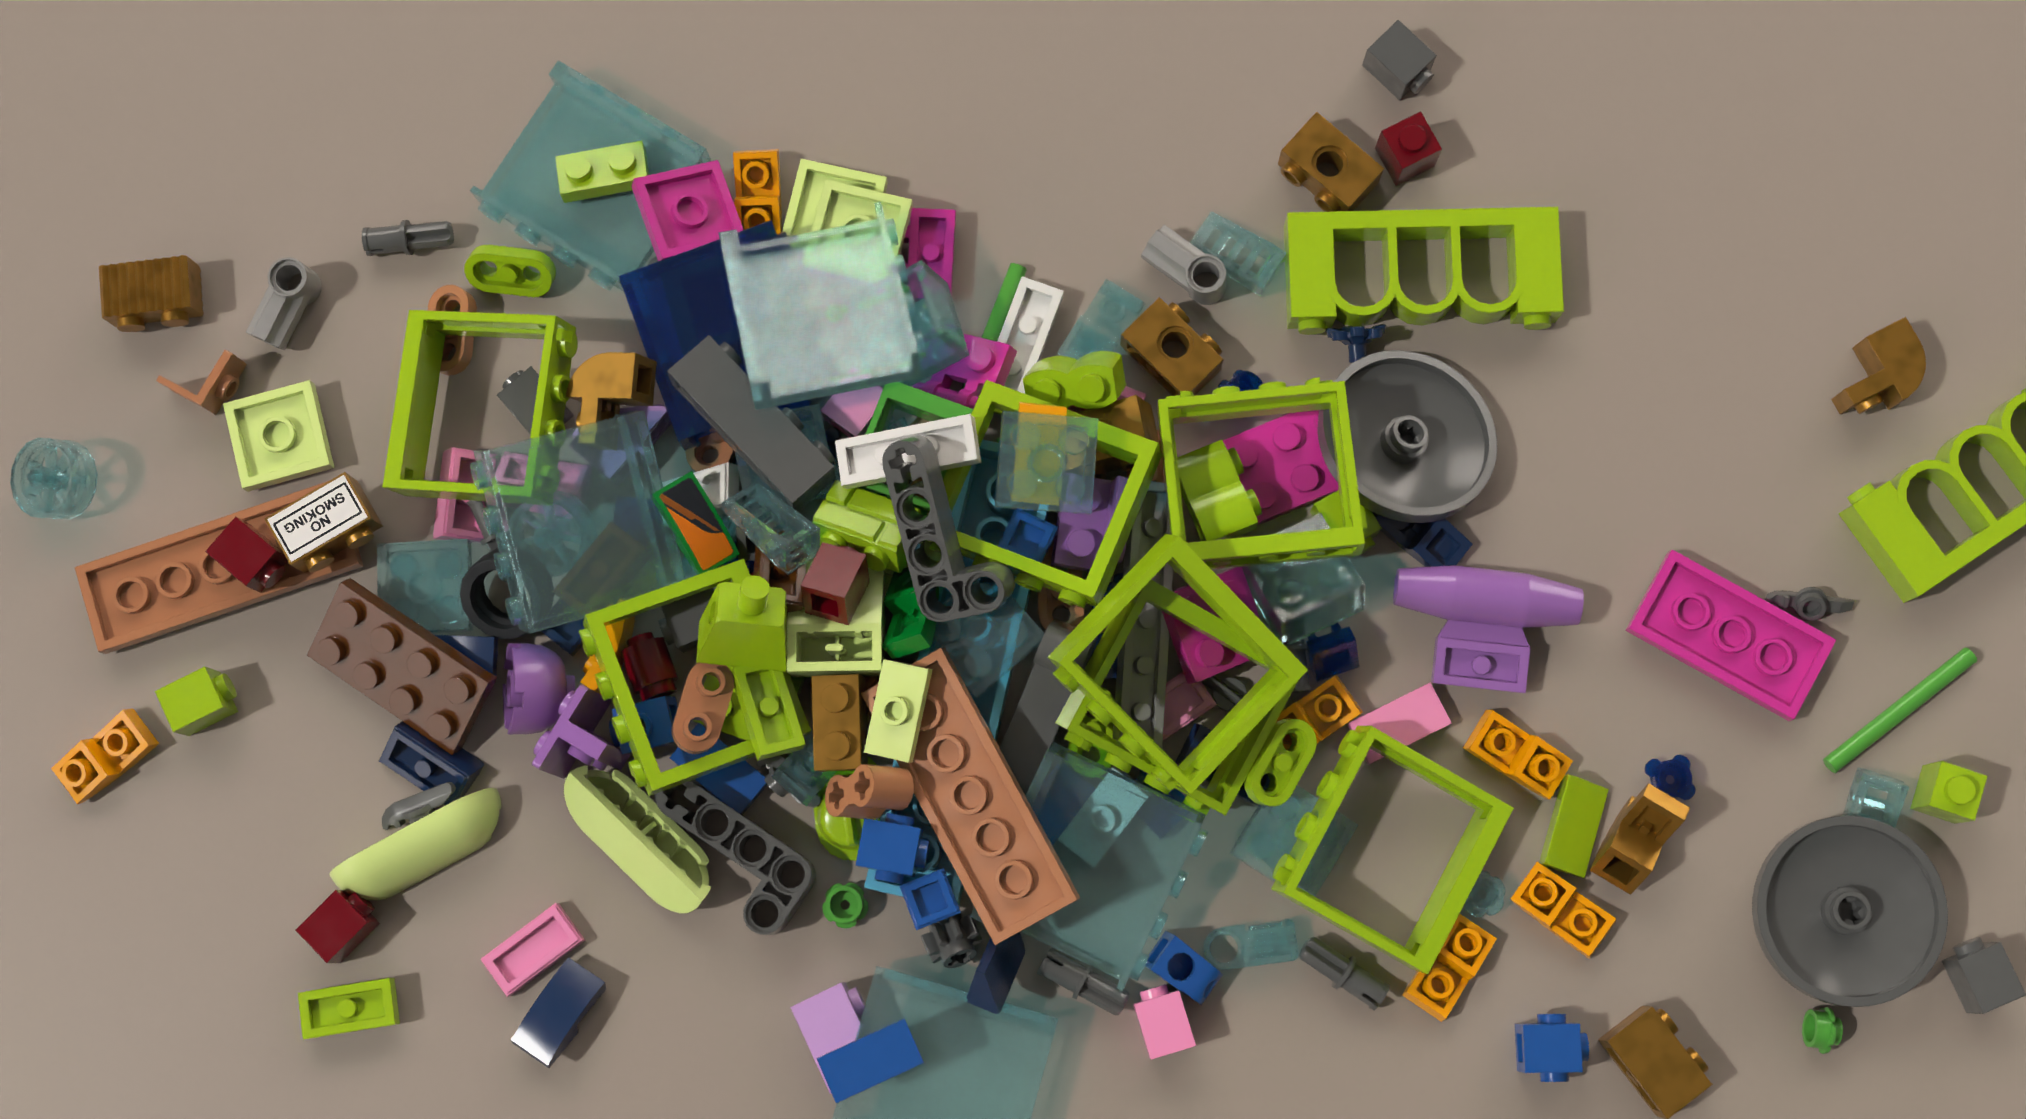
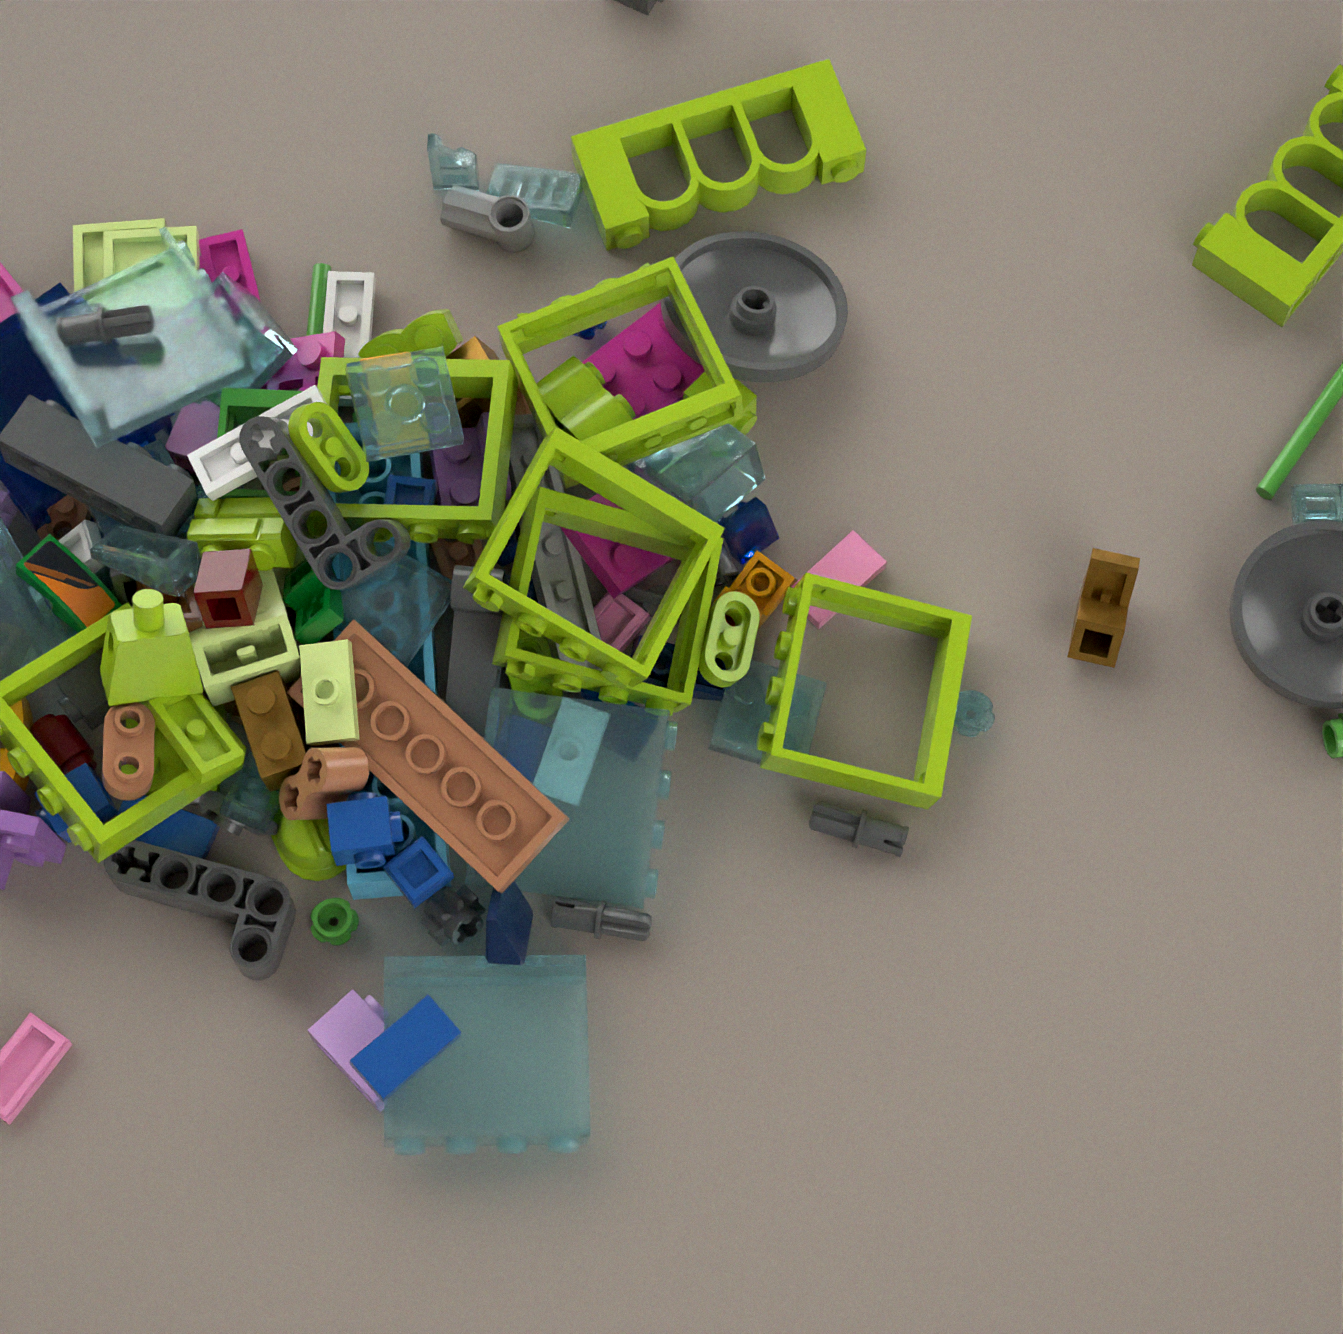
camera: 25 degrees left, 10 degrees down
(557, 1011) = (63, 1119): dark blue slope -> none
(638, 837) = (97, 919): yellowish green brick -> none
(758, 187) = (35, 260): light orange slope -> none
(797, 286) = (105, 325): none -> dark grey axle
(963, 478) = (328, 444): none -> lime plate
(1103, 322) = (424, 289): clear light blue slope -> none
(1163, 1022) = (694, 931): bright pink brick -> none
(1166, 208) = (451, 166): none -> clear light blue tile
(1168, 323) = (482, 276): pearl gold brick -> none
(1183, 967) = (697, 873): blue leg -> none
(1257, 946) = (764, 832): clear light blue piece -> none
(1321, 143) = (586, 69): pearl gold brick -> none
(1356, 338) = (675, 233): dark blue plant -> none
(1408, 148) = (669, 50): dark red brick -> none
(1429, 542) = (804, 400): dark blue slope -> none
(1453, 968) = (964, 792): light orange slope -> none
(1485, 620) = (887, 457): medium lavender plate -> none
(1517, 754) = (961, 574): light orange slope -> none
(1551, 1047) = (1085, 834): blue brick -> none
(1563, 910) = (1054, 706): light orange slope -> none
(1573, 826) = (1038, 622): lime slope -> none
(1656, 1061) = (1192, 815): pearl gold brick -> none
(1678, 769) = (1120, 538): clear blue plate -> none
(1731, 635) = (1127, 400): dark pink plate -> none
(1809, 602) = (1192, 350): dark grey piece -> none
(1894, 367) = (1193, 113): pearl gold brick -> none

